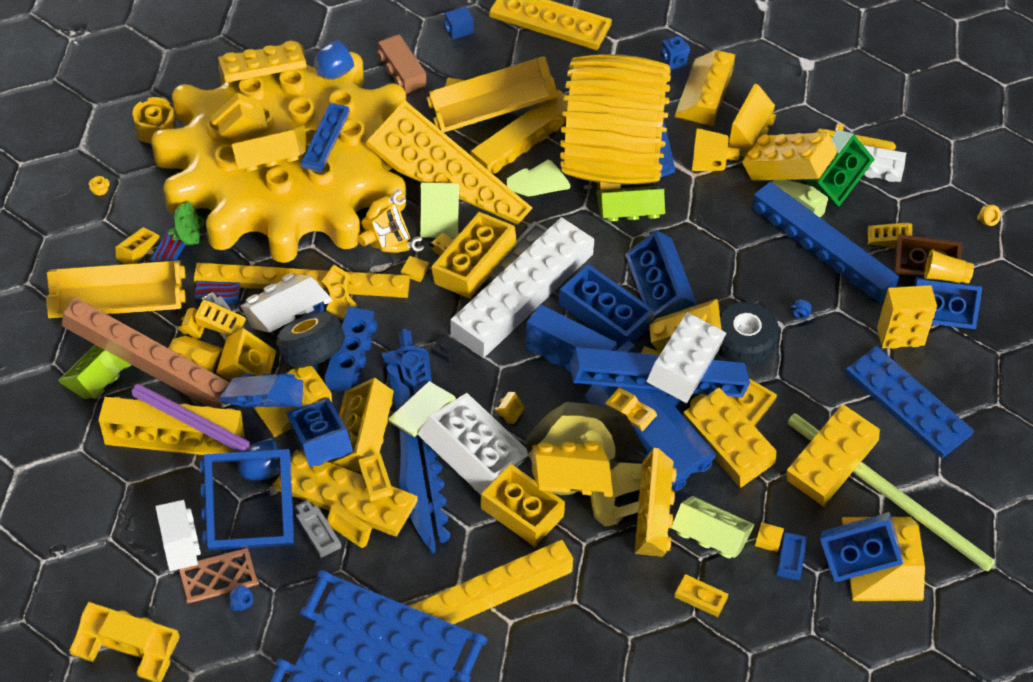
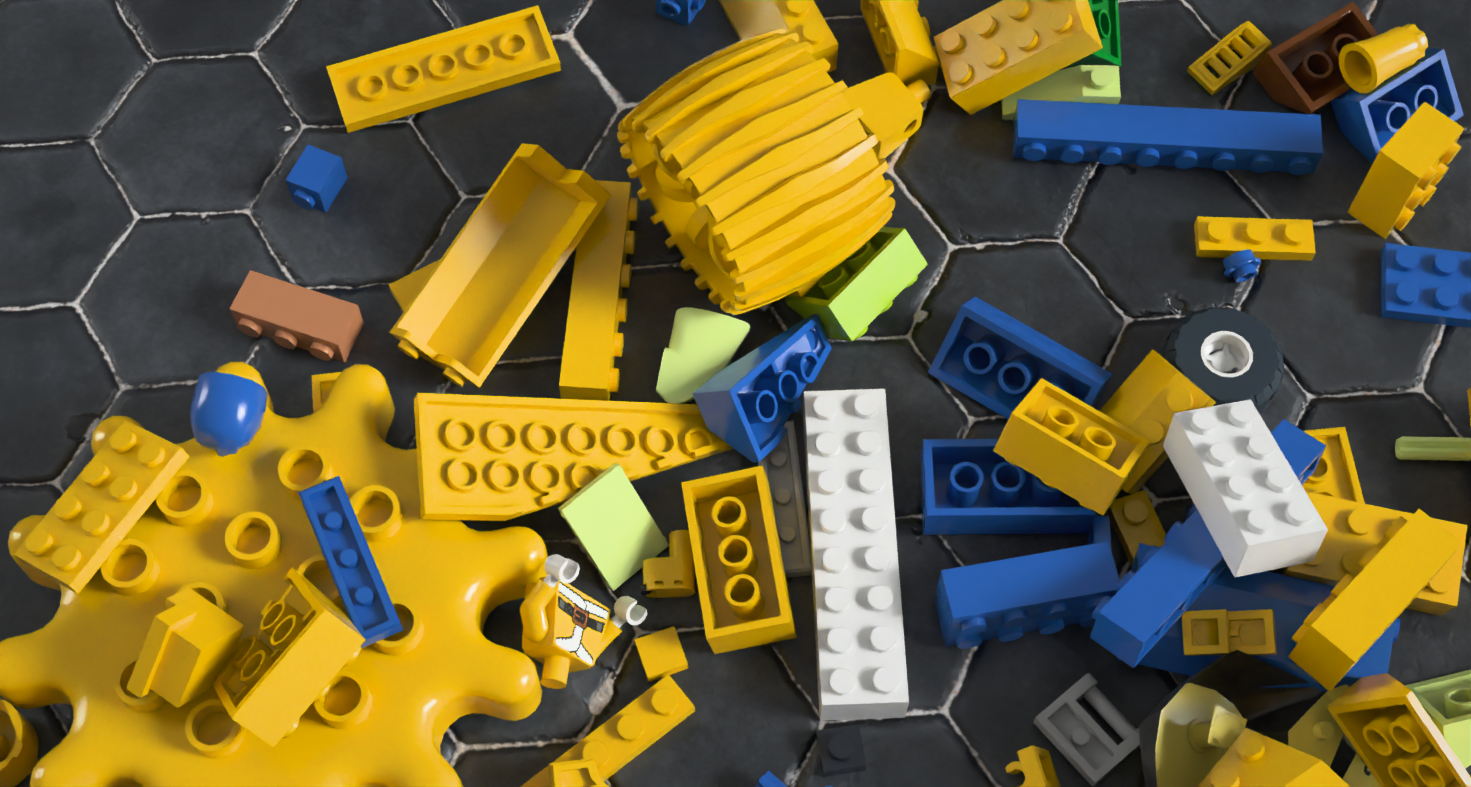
camera: 40 degrees left, 10 degrees up
(541, 208) = (760, 391): none -> blue wedge
(541, 403) = (1081, 737): none -> light grey plate
(639, 301) = (1070, 446): none -> yellow slope
(695, 430) = (1371, 597): none -> yellow brick
(822, 305) = (1265, 237): none -> yellow plate

